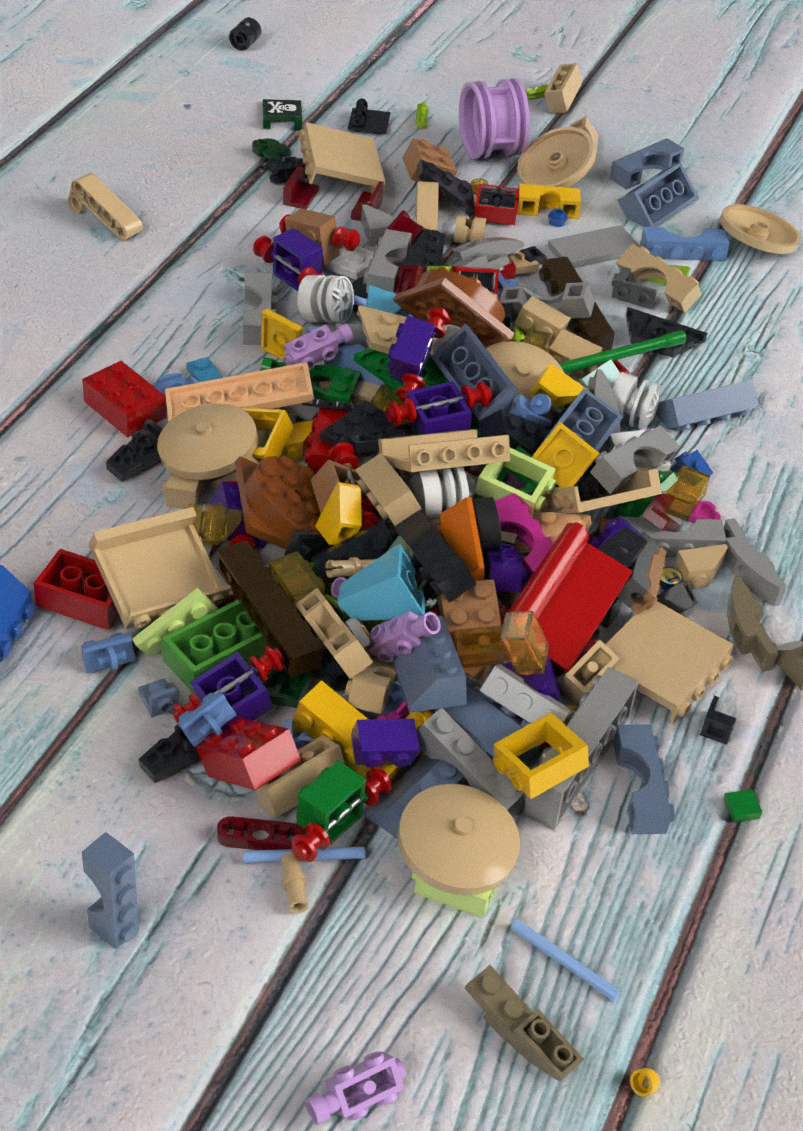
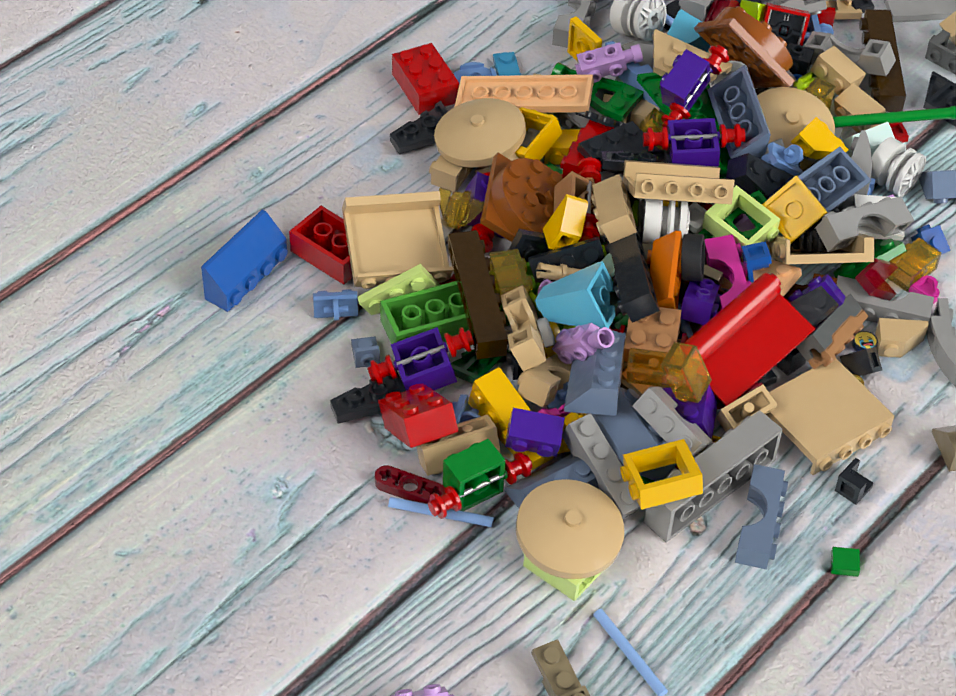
camera: 20 degrees right, 5 degrees up
(113, 873) = (265, 490): sand blue arch -> none
(206, 718) = (392, 378): medium blue hips -> none
(294, 883) = (422, 533): tan pin -> none
(546, 511) = (756, 257): none -> blue panel
(745, 627) = (919, 401): dark tan slope -> none

